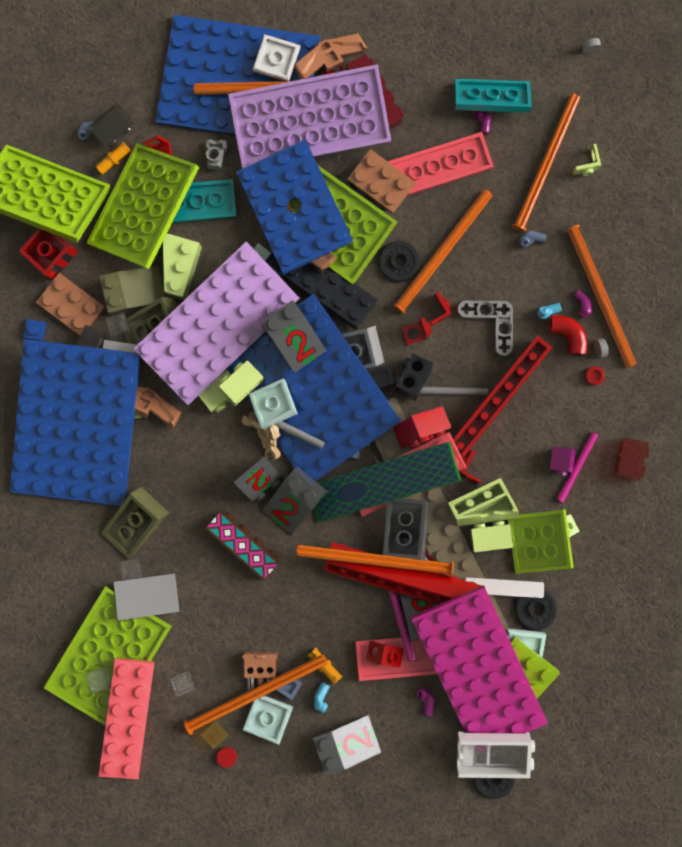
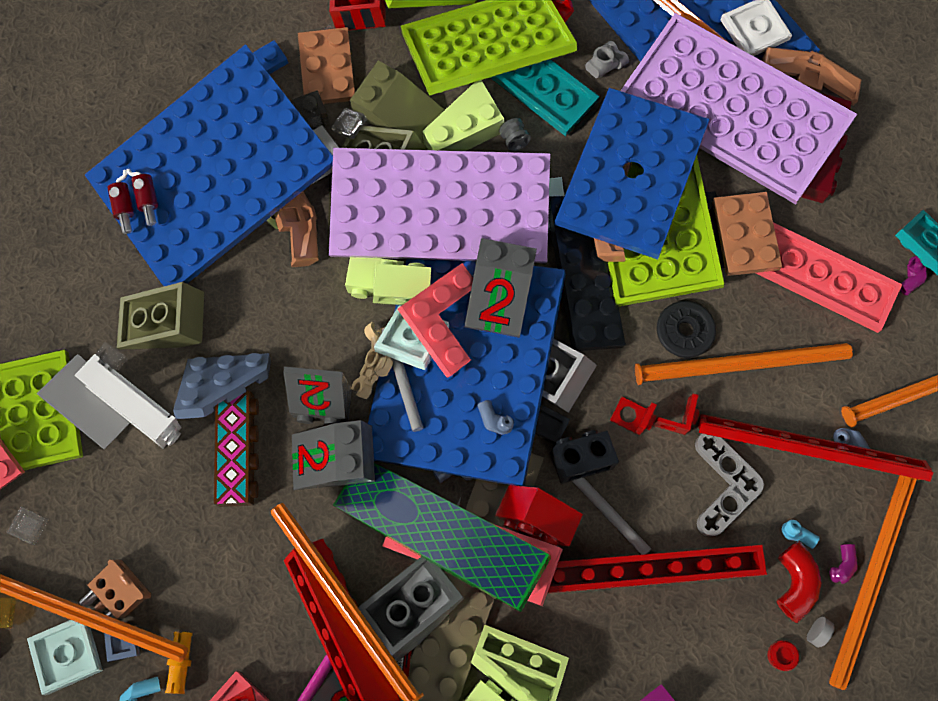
camera: 45 degrees right, 10 degrees down
(59, 470) = (121, 199): none -> dark red piece
(171, 576) = (129, 402): none -> white door
(199, 522) = (217, 379): none -> sand blue plate
(210, 244) = (514, 134): none -> dark grey wheel
(279, 391) = (424, 319): none -> coral plate
(356, 405) = (494, 422): none -> sand blue arm
(467, 459) = (550, 600): red bracket -> none
(516, 261) = (815, 447): none -> red tile

